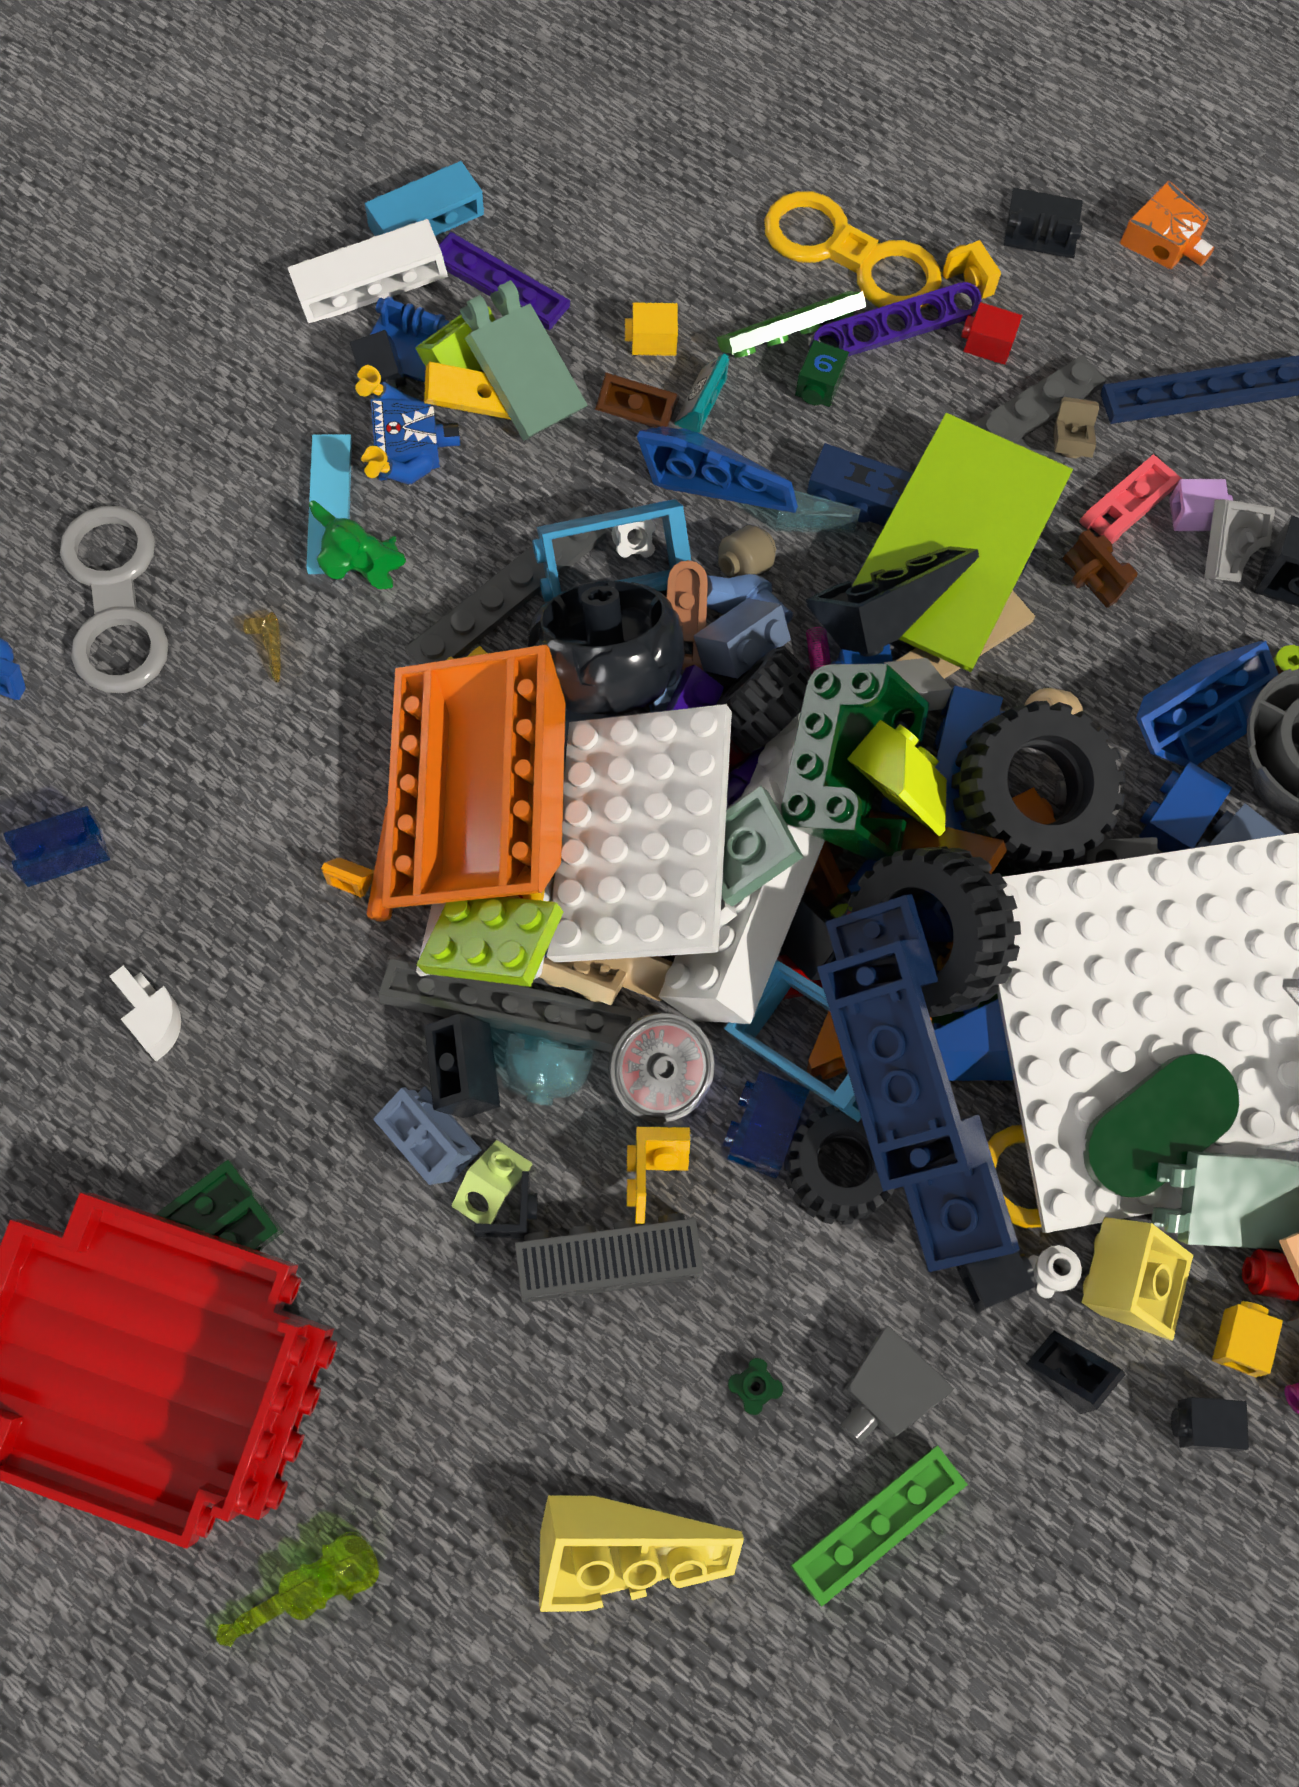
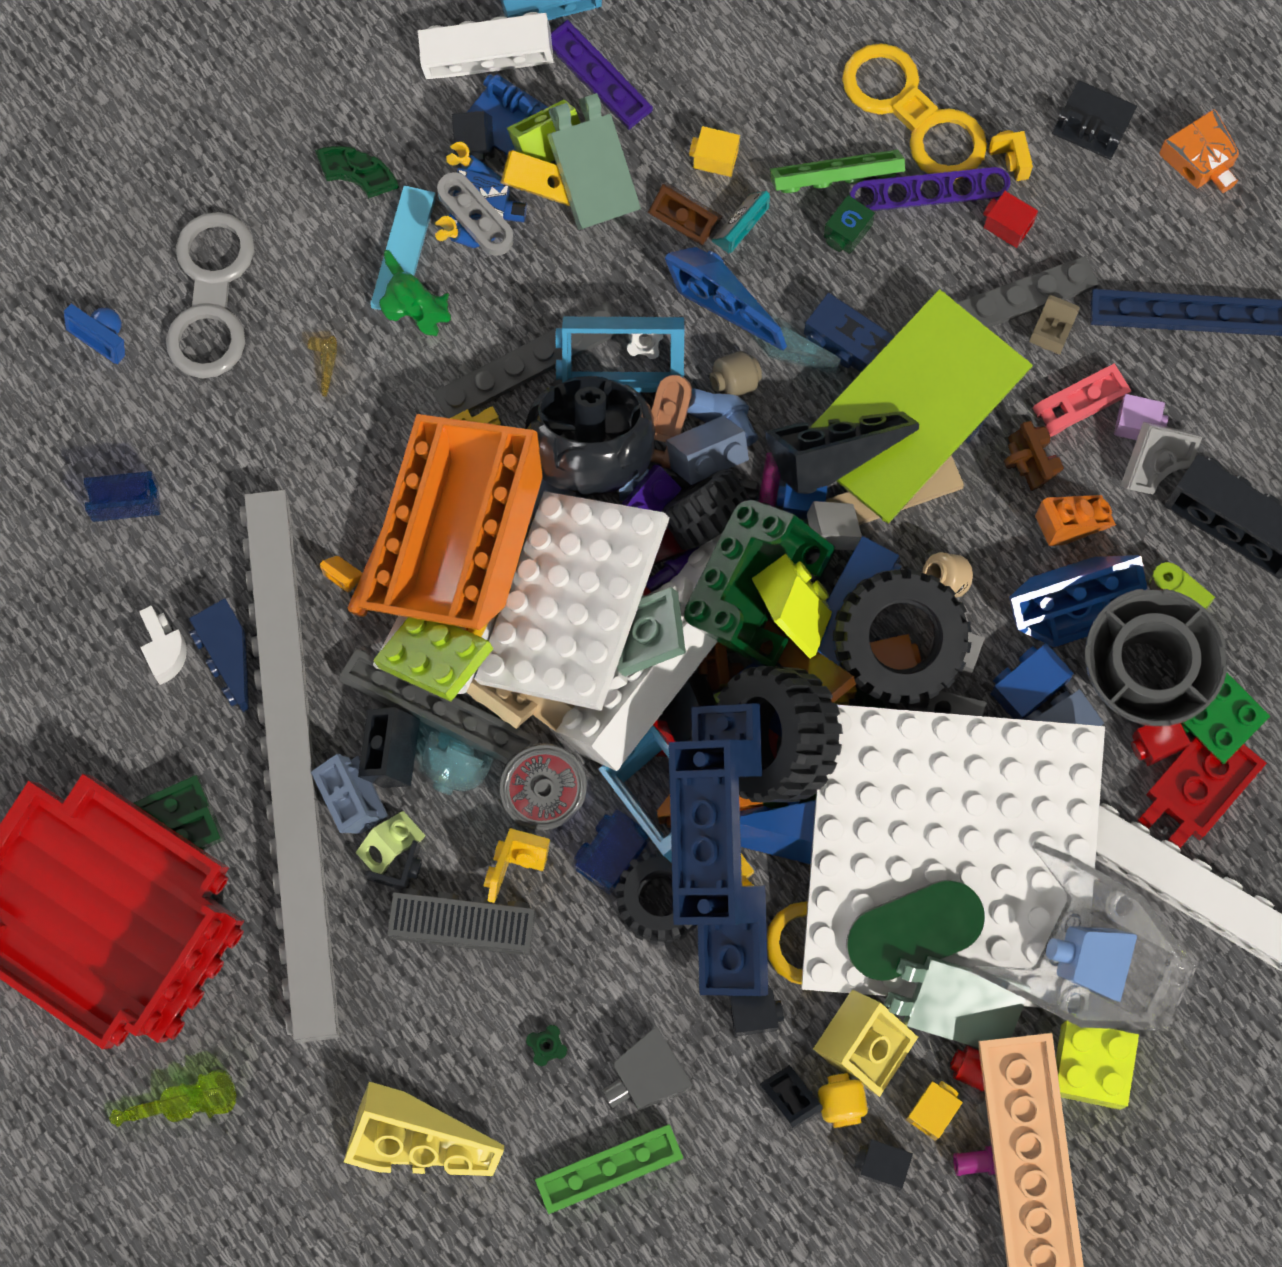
camera: 20 degrees right, 5 degrees up
(227, 990) = (227, 645): none -> dark blue slope
(253, 428) = (356, 167): none -> dark green tile
(349, 1135) = (289, 776): none -> light grey brick
(397, 428) = (471, 202): none -> light grey plate
(1045, 1276) = (796, 1029): white brick -> none
(1140, 1356) = (843, 1101): none -> yellow head
(1166, 622) = (1073, 518): none -> orange slope

